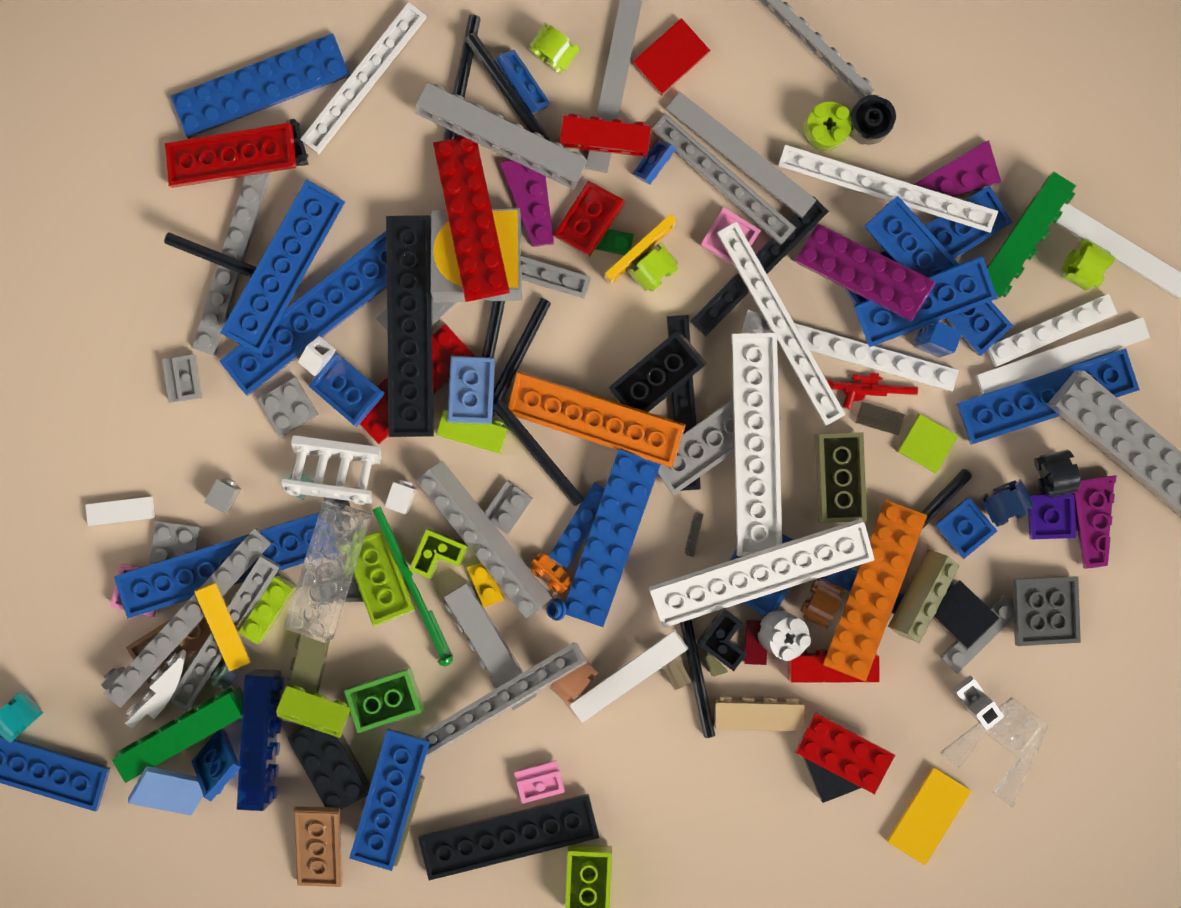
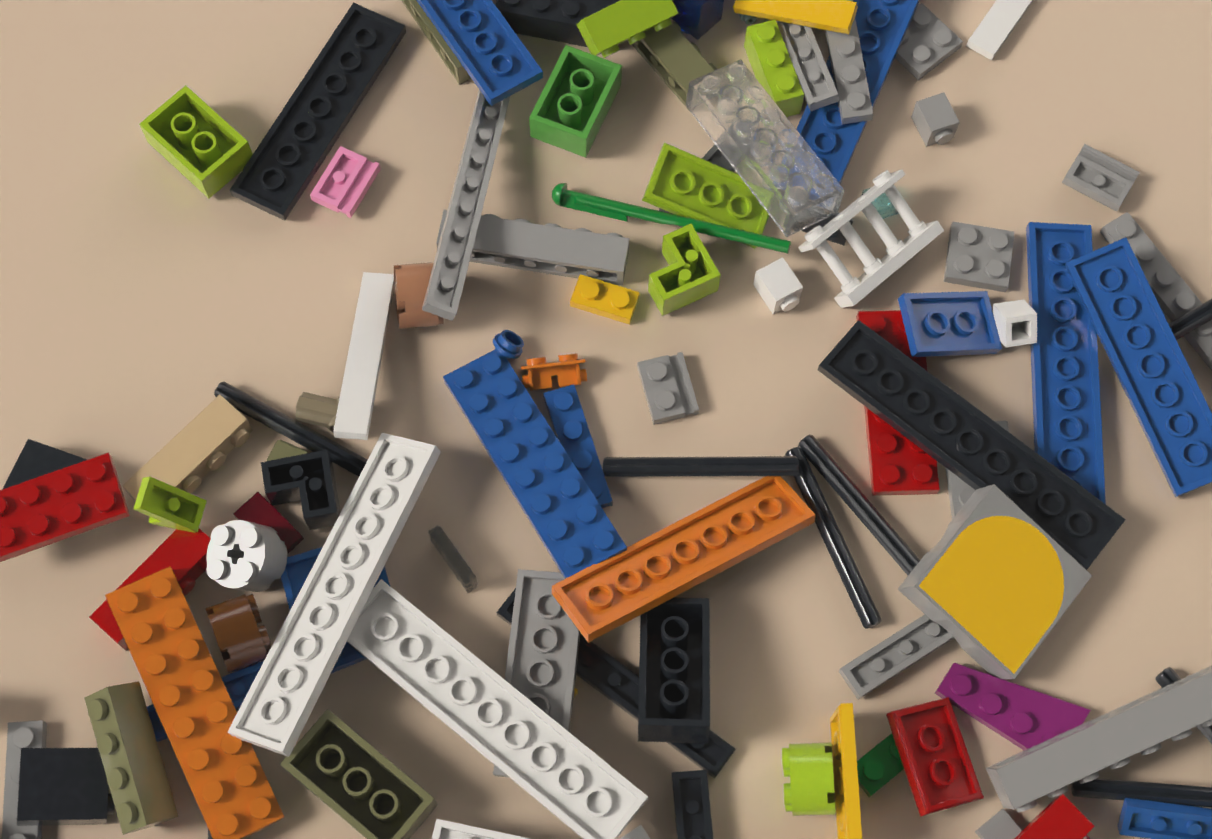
camera: 130 degrees right, 20 degrees down
(471, 219) = (1047, 608): red plate -> none
(471, 390) = (837, 449): medium blue tile -> none
(484, 436) = (787, 417): lime brick -> none
(484, 539) = (655, 330): light grey brick -> none
(795, 693) = (169, 505): none -> lime slope

